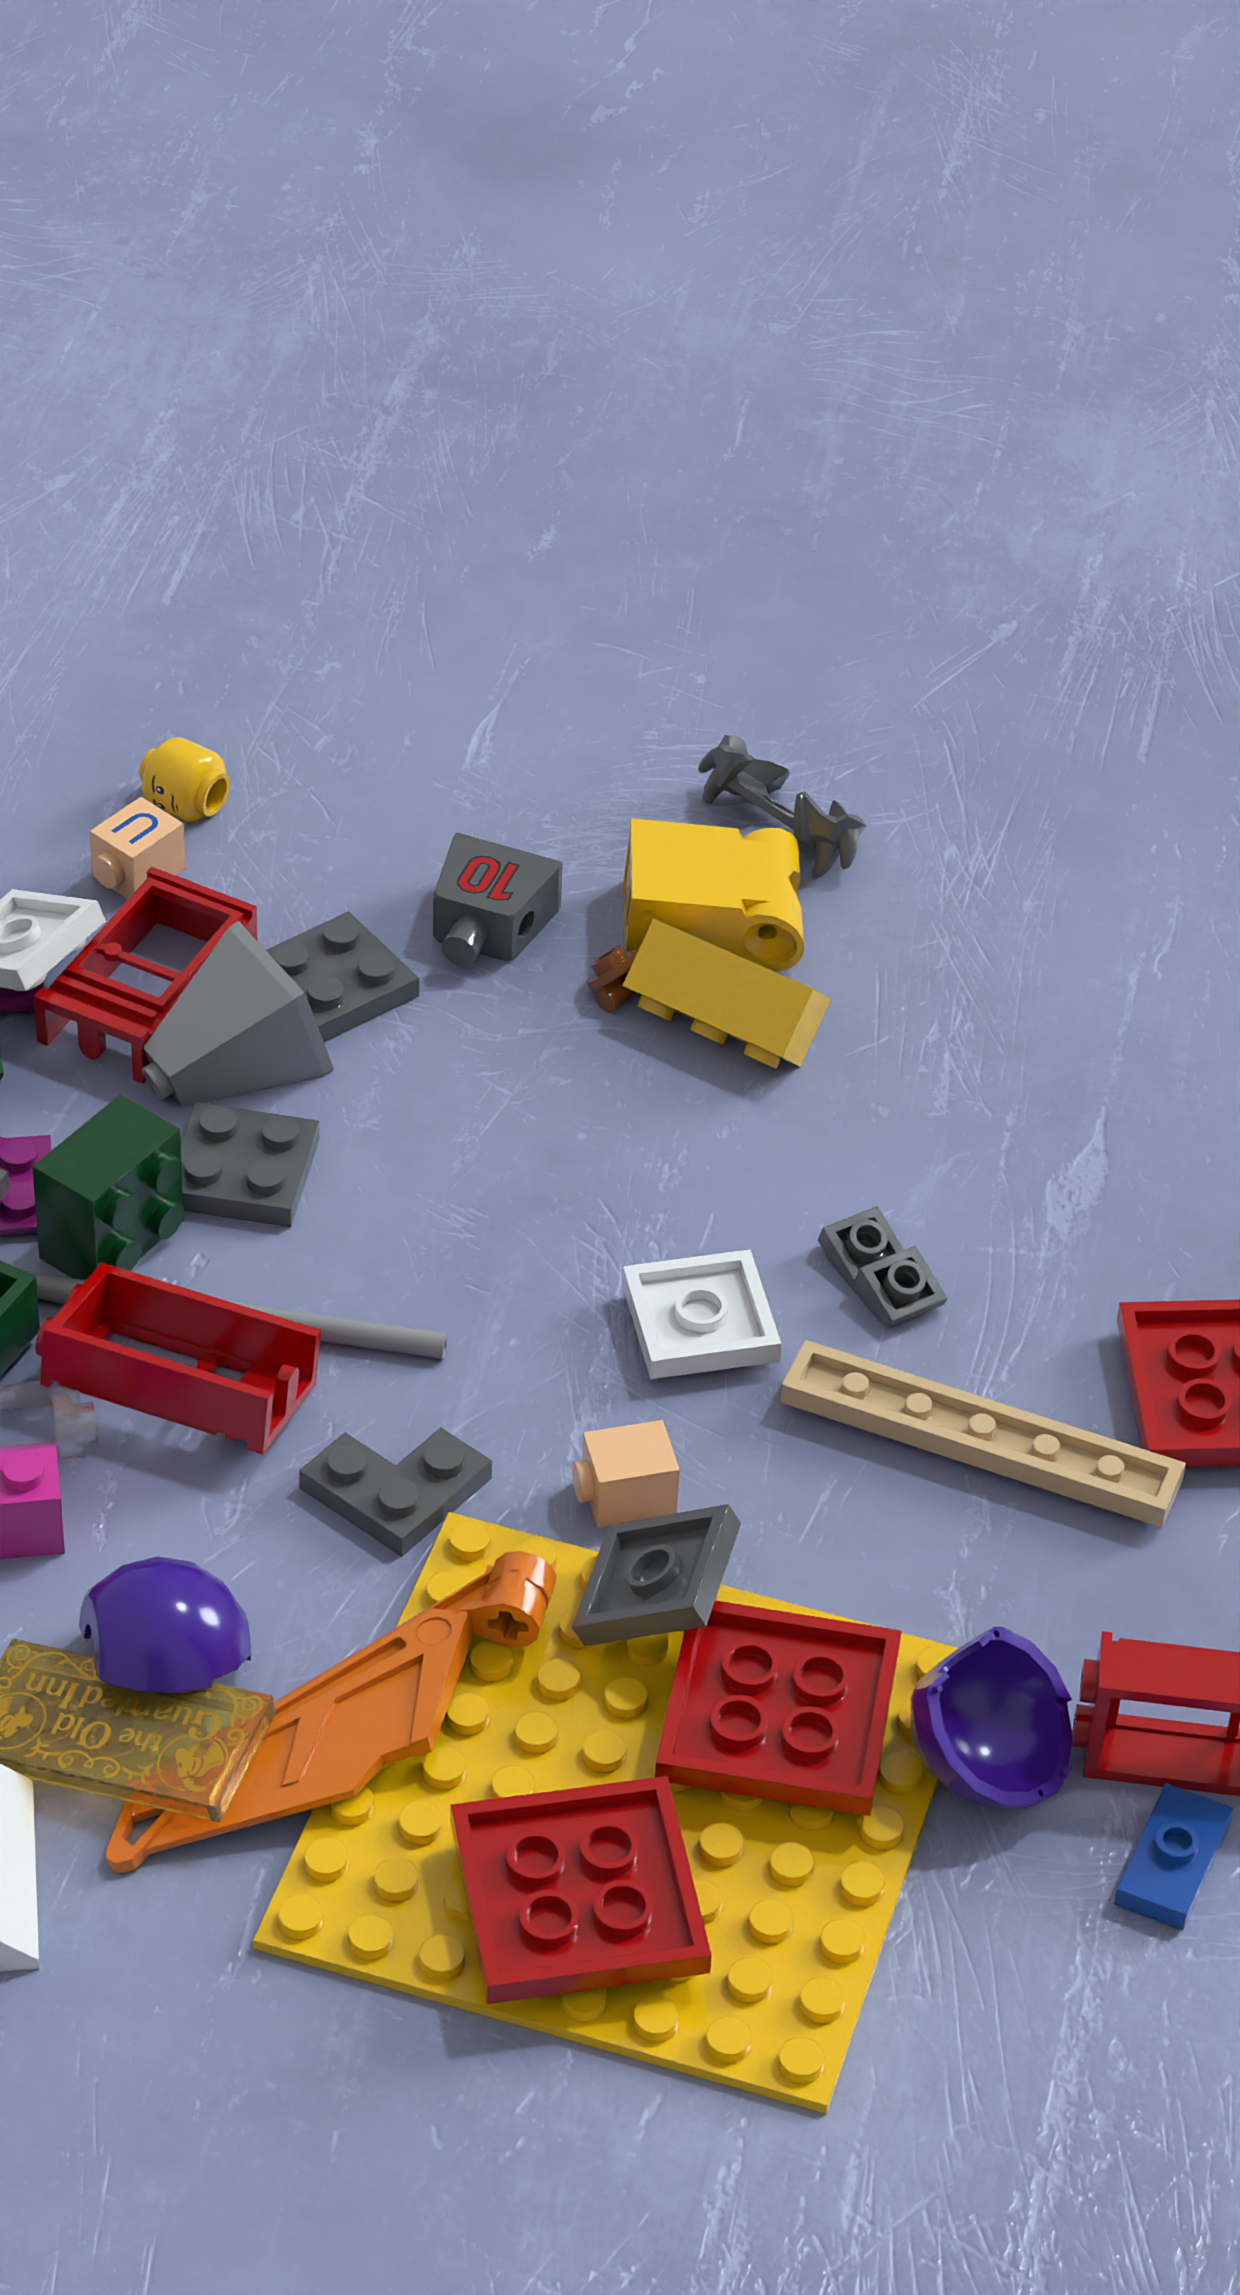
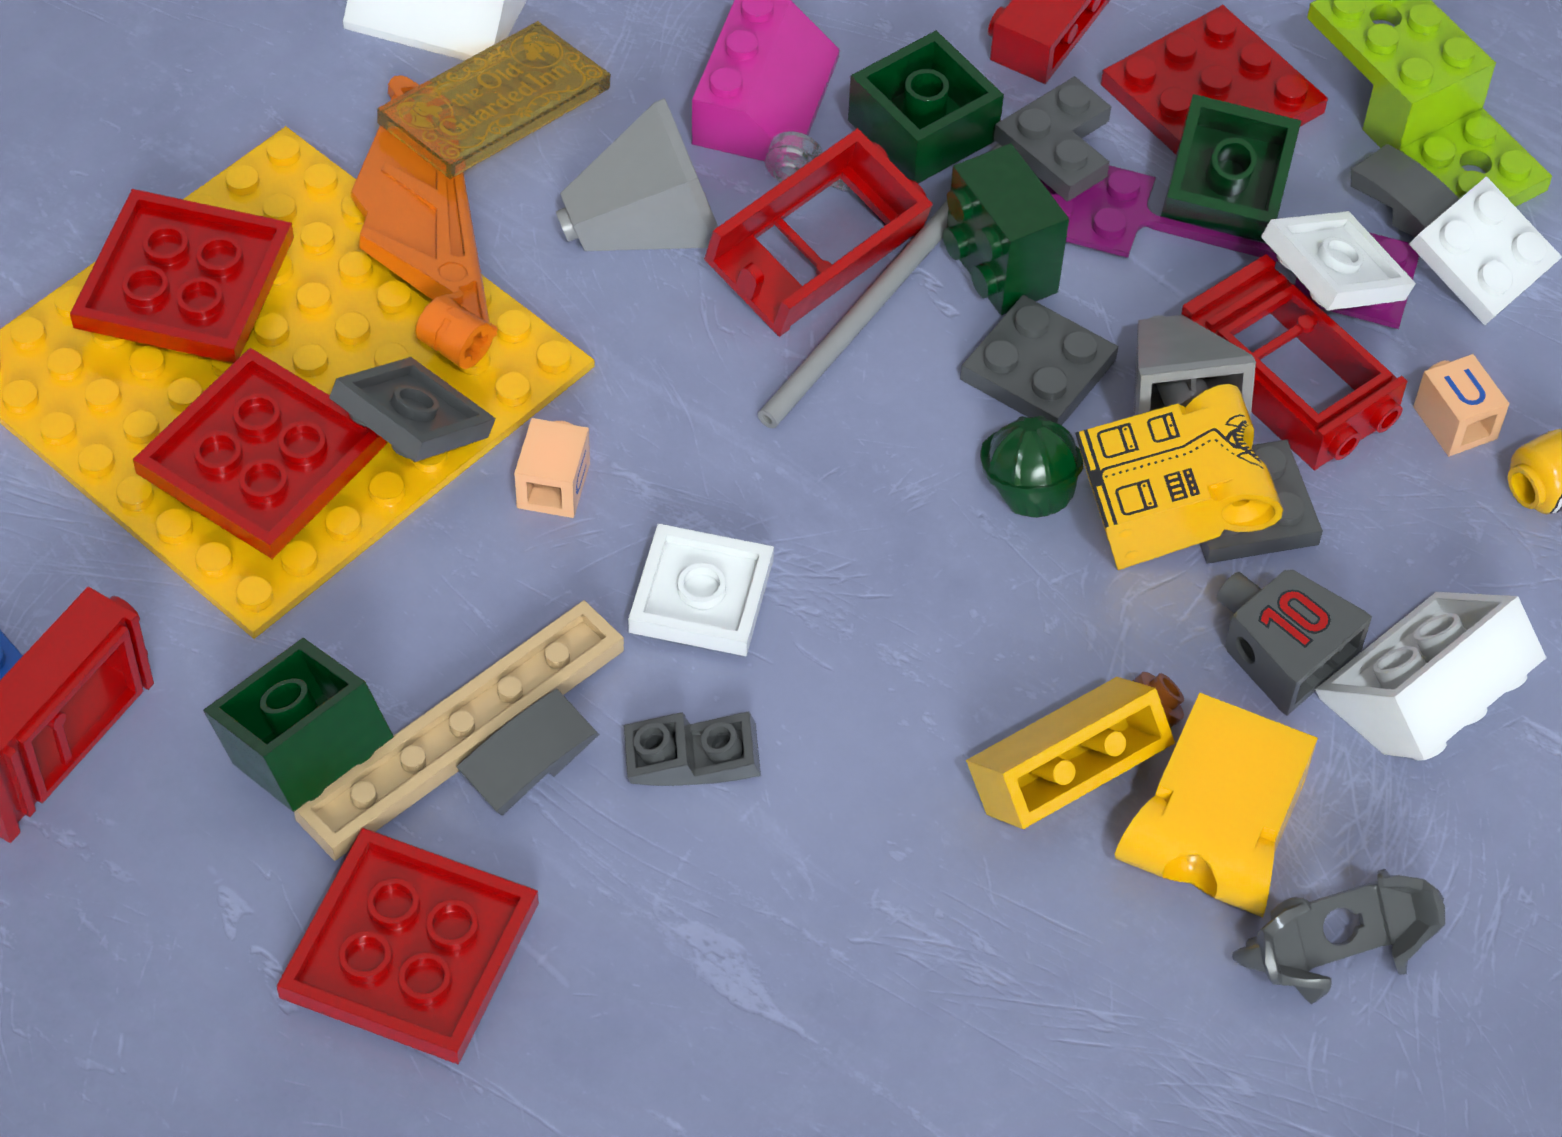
camera: 115 degrees right, 10 degrees up
(164, 1627) = (547, 132): dark purple cylinder -> none
(204, 1505) = (639, 192): none -> light grey slope
(379, 990) = (1178, 476): none -> yellow piece
(385, 1125) = (1032, 465): none -> dark green piece
(400, 1500) = (627, 334): dark grey plate -> none
(449, 788) = (1434, 672): none -> white slope
(975, 1364) = (526, 750): none -> dark grey slope
(994, 1722) = (150, 552): dark purple cylinder -> none
(1090, 1516) = (299, 724): none -> dark green brick

